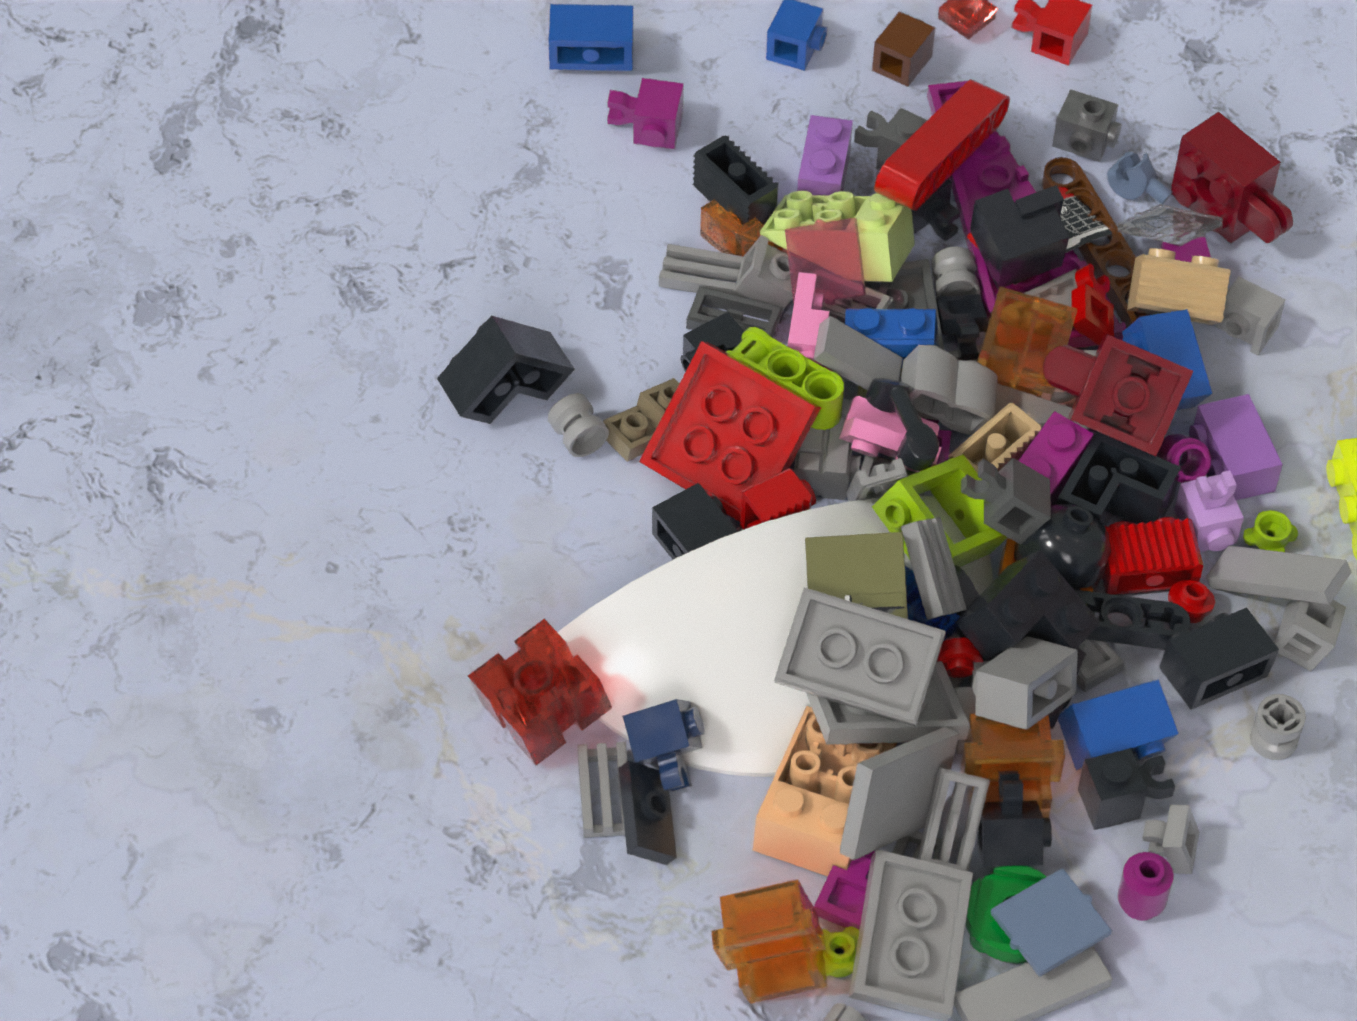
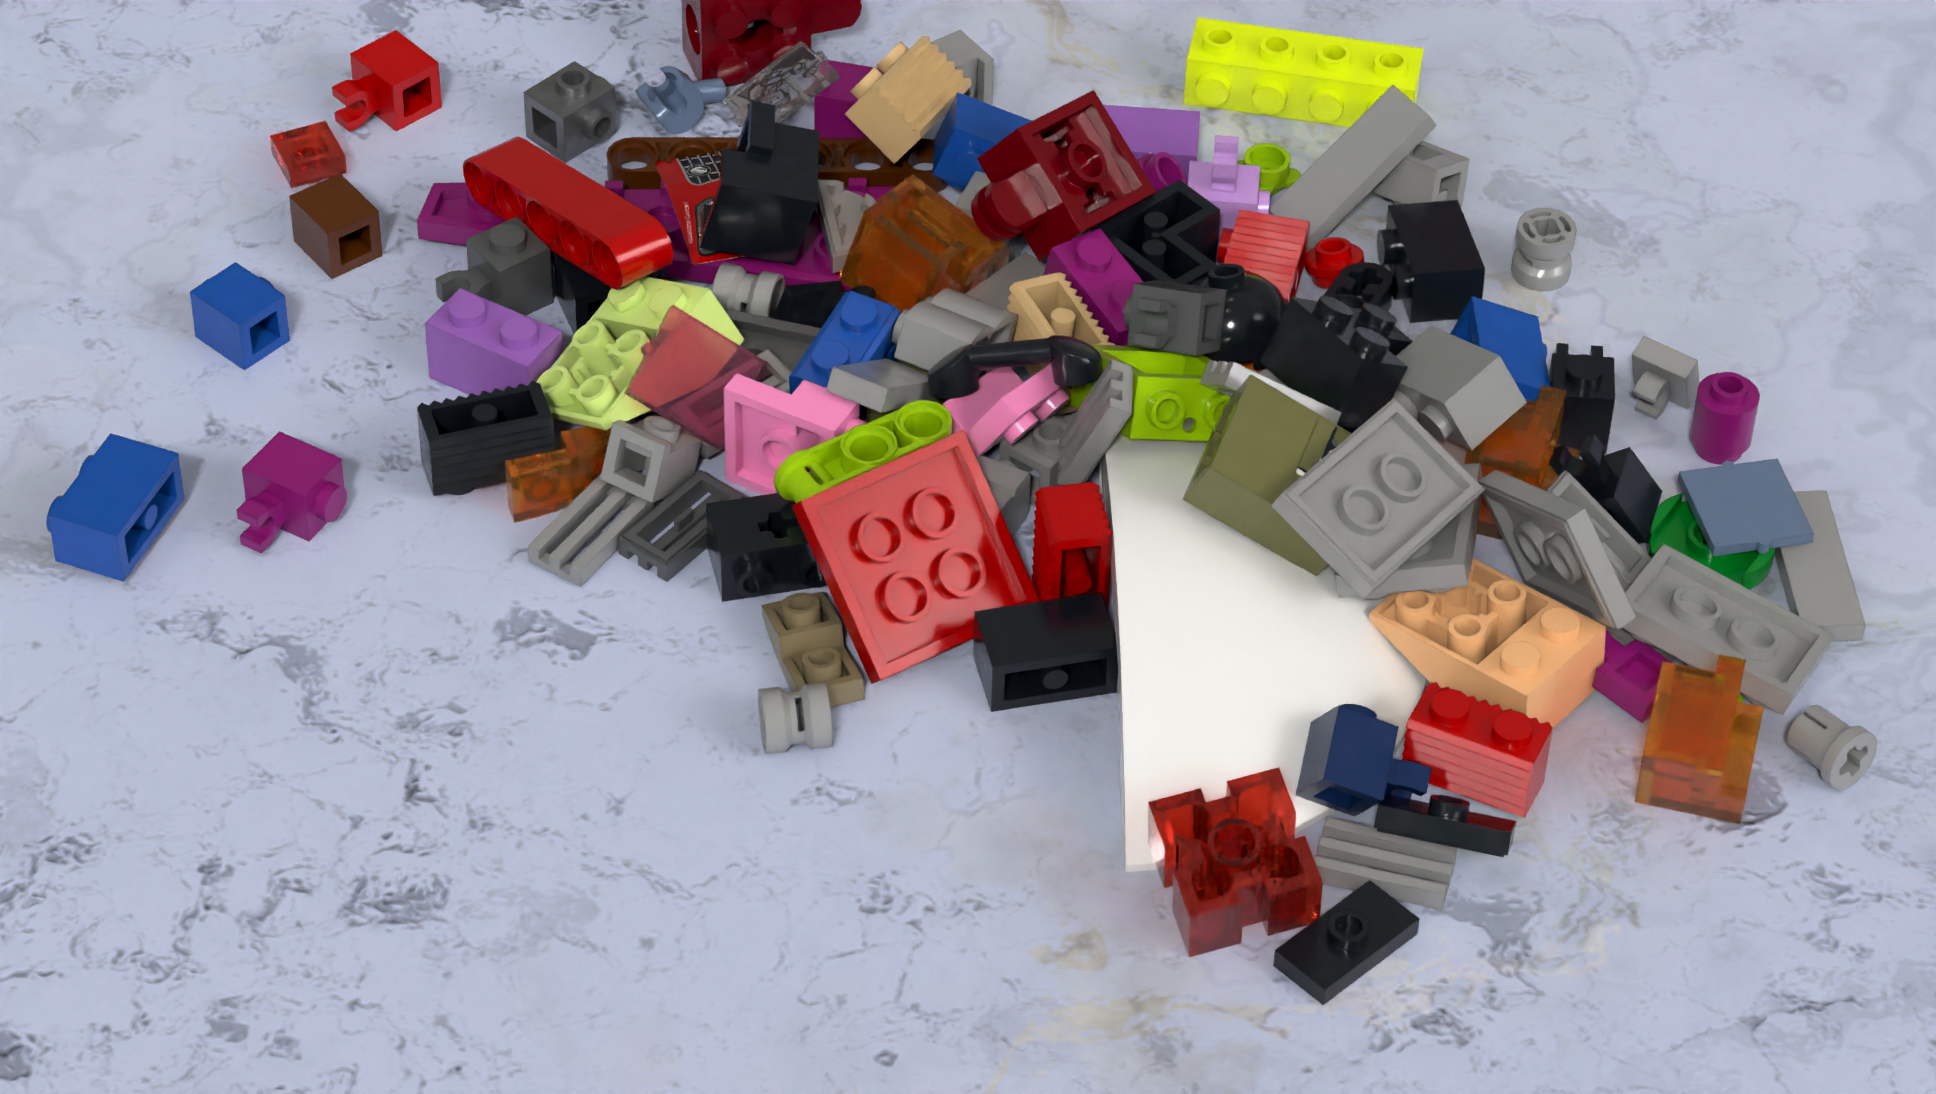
camera: 70 degrees left, 10 degrees down
(499, 364) = (675, 760): black brick -> none
(523, 786) = (1346, 942): none -> black plate
(719, 811) = (1478, 748): none -> red brick
(1094, 312) = (868, 174): red plate -> none

